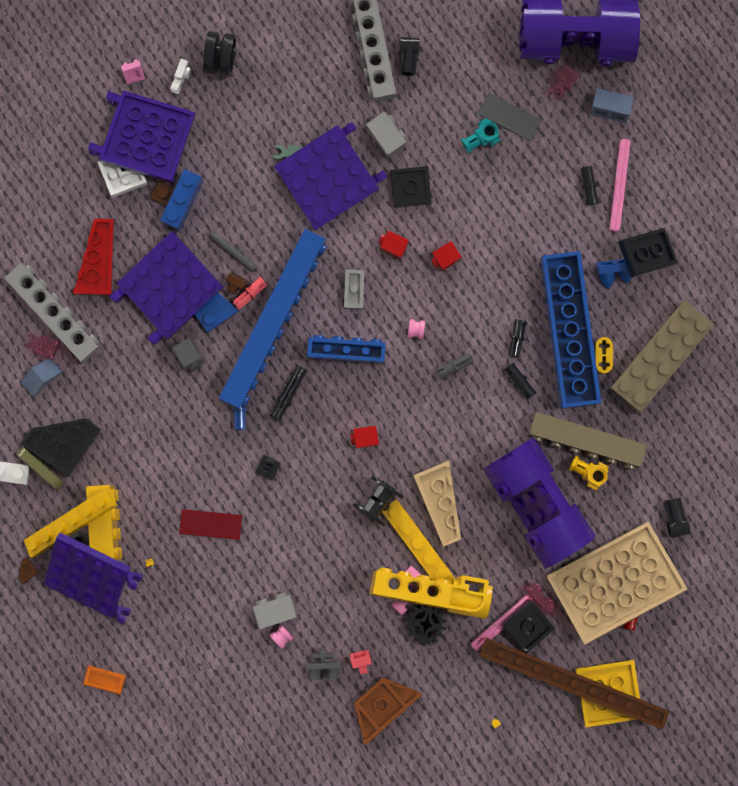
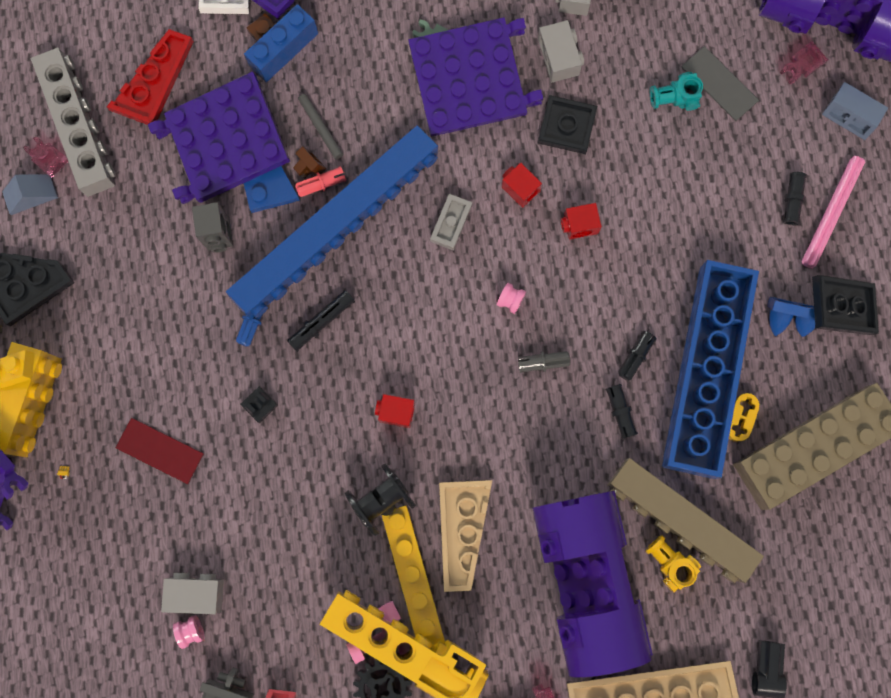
camera: 25 degrees right, 5 degrees down
(346, 350) = (417, 294): blue brick -> none

